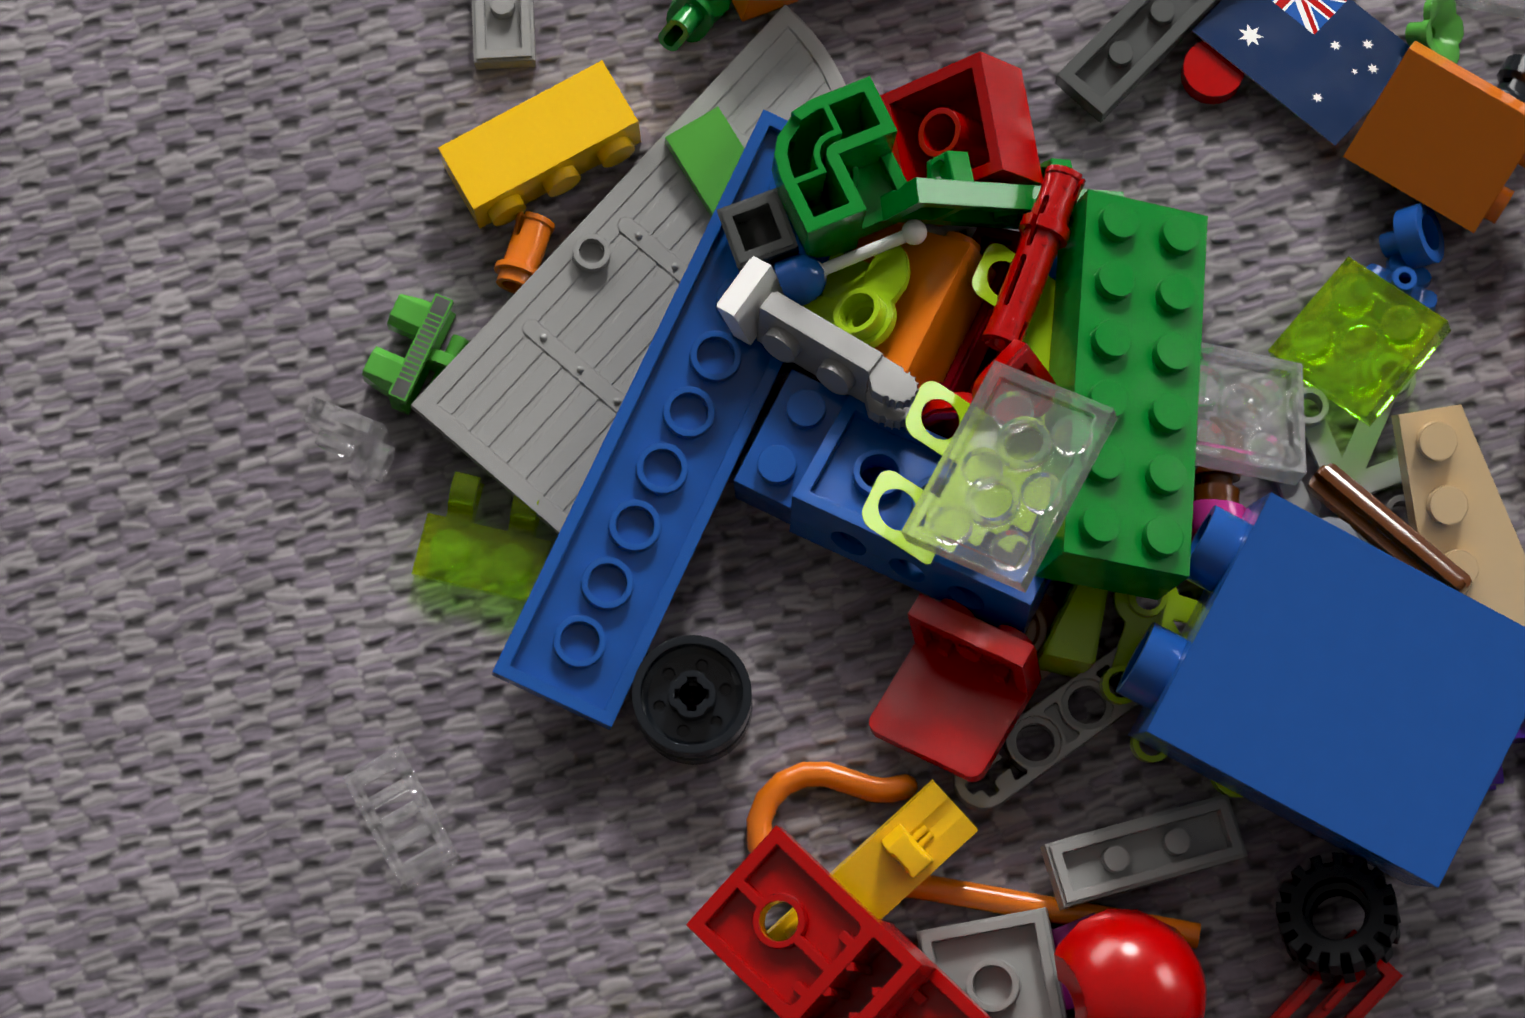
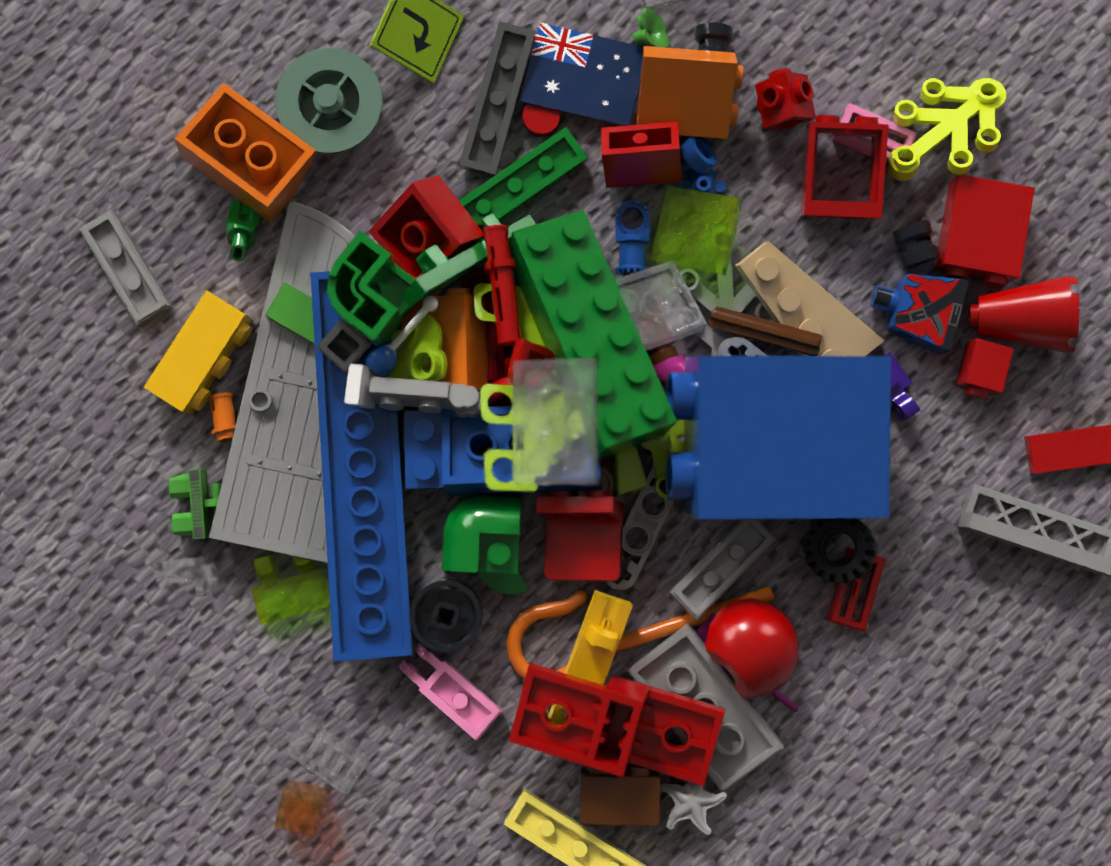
camera: 35 degrees left, 10 degrees up
(323, 867) = (301, 807): none -> clear orange brick
(638, 827) = (453, 693): none -> bright pink hinge
(805, 696) = (504, 582): none -> green tile
(808, 613) = (483, 535): none -> green brick
(1149, 142) = (526, 178): none -> green plate
(1253, 310) = (632, 241): none -> blue connector
(1333, 191) = (641, 154): none -> red brick

